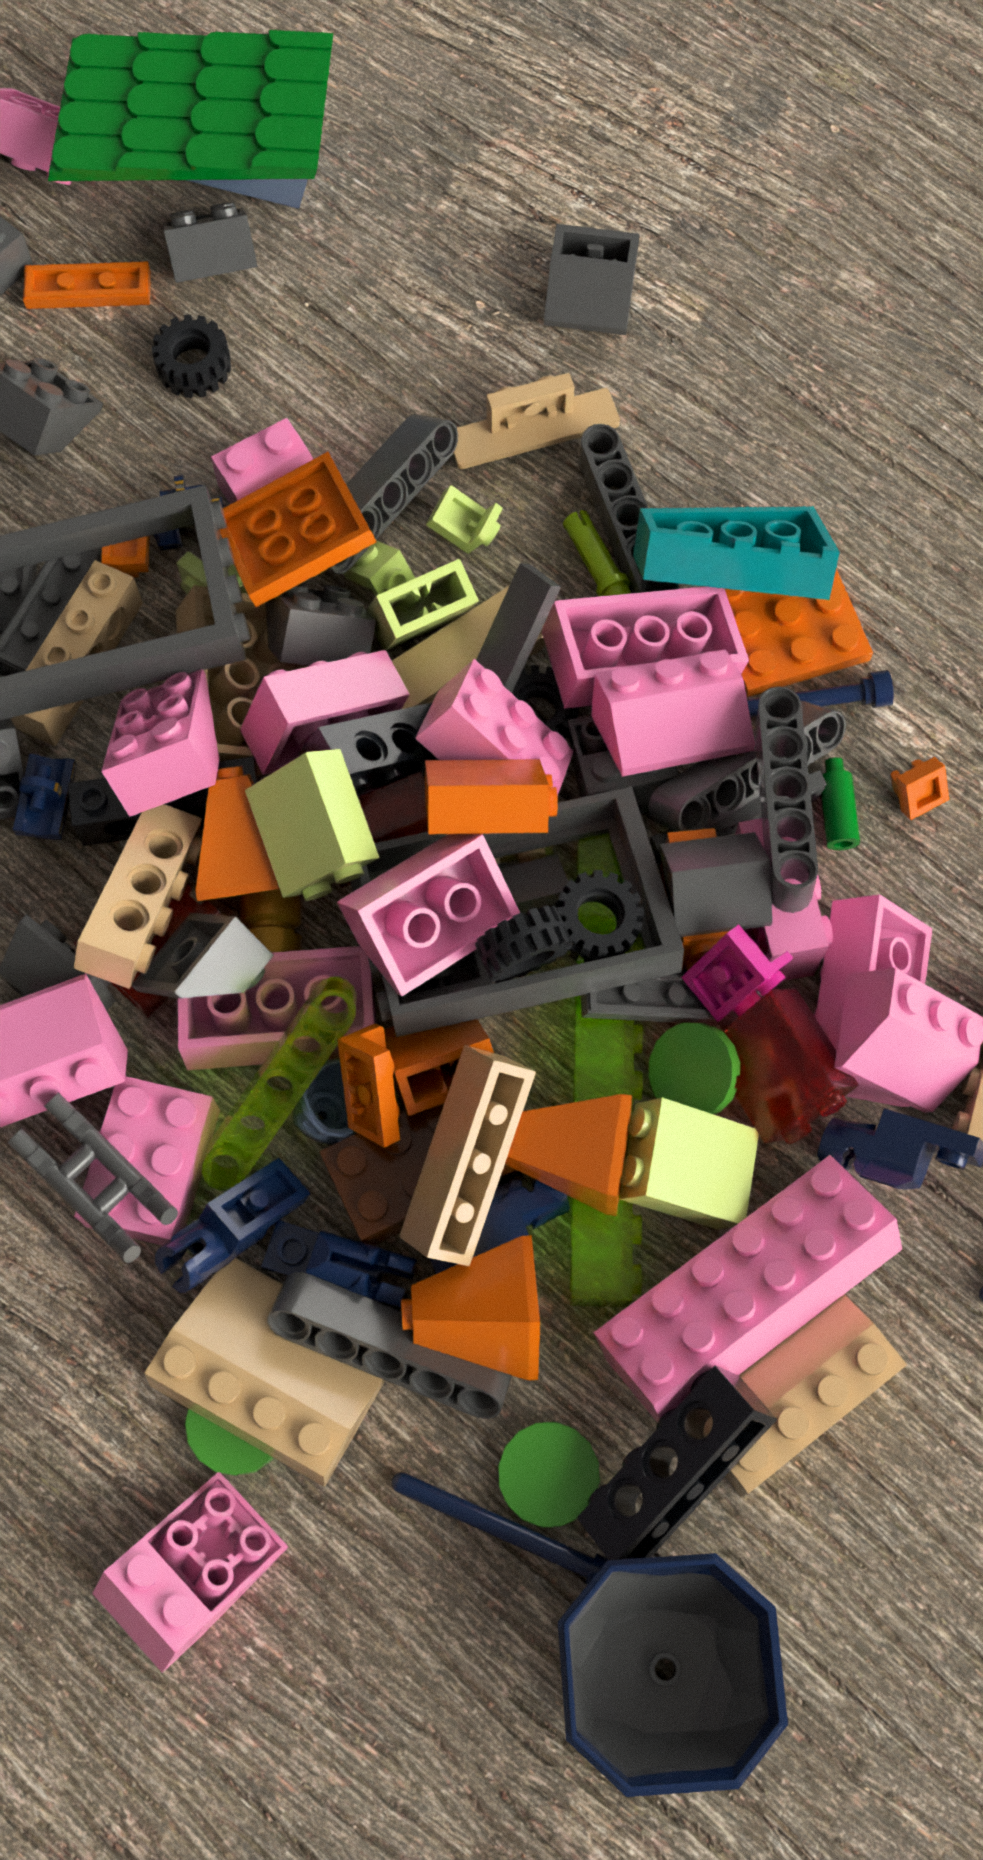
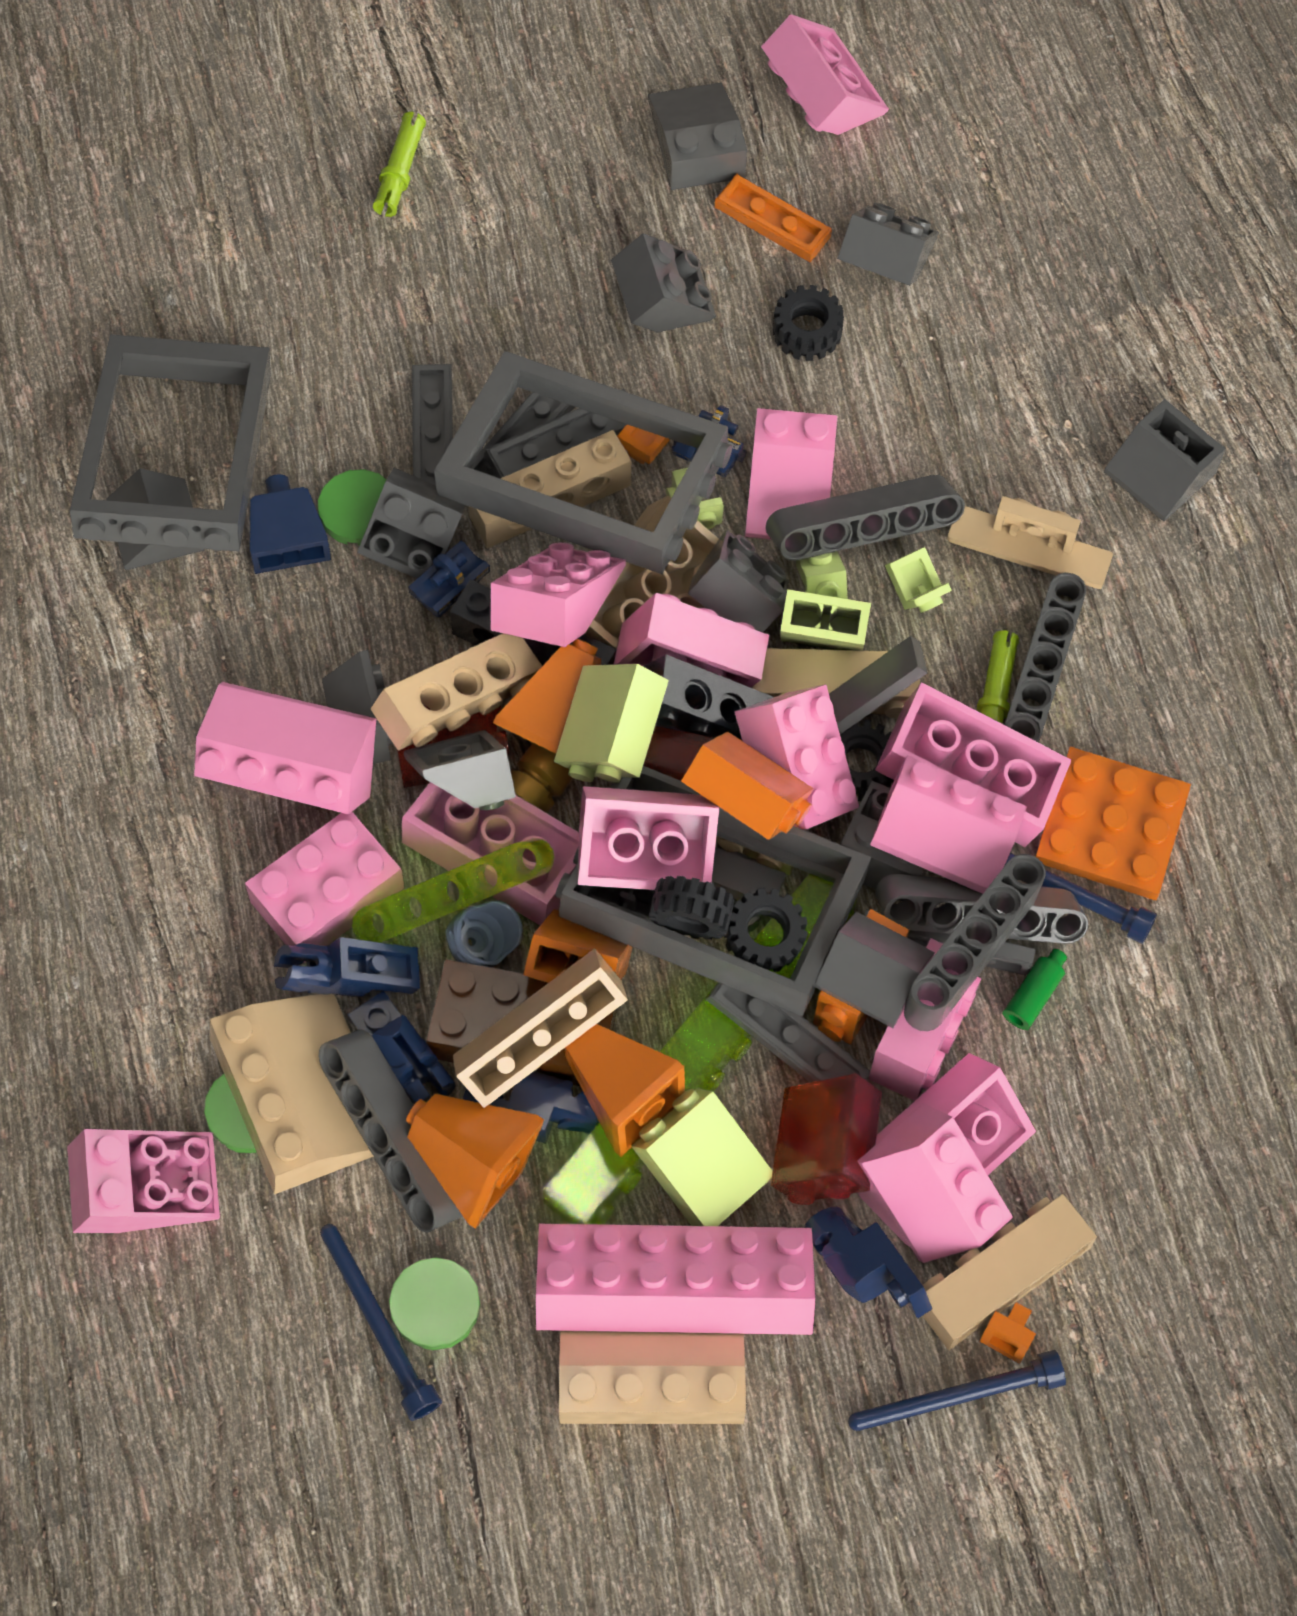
camera: 35 degrees right, 5 degrees down
(63, 1178) = (256, 849): dark grey piece -> none
(196, 110) = (944, 135): green piece -> none
(294, 529) = (772, 501): orange plate -> none
(369, 1085) = (512, 933): orange bracket -> none
(695, 1067) = (764, 1097): bright green tile -> none
(701, 1465) = (521, 1355): black brick -> none
(726, 1688) = (394, 1437): dark grey rock -> none
(733, 974) = (837, 1044): dark pink bracket -> none
(738, 549) = (1099, 738): teal wedge -> none
(921, 787) = (1111, 1020): orange tile -> none

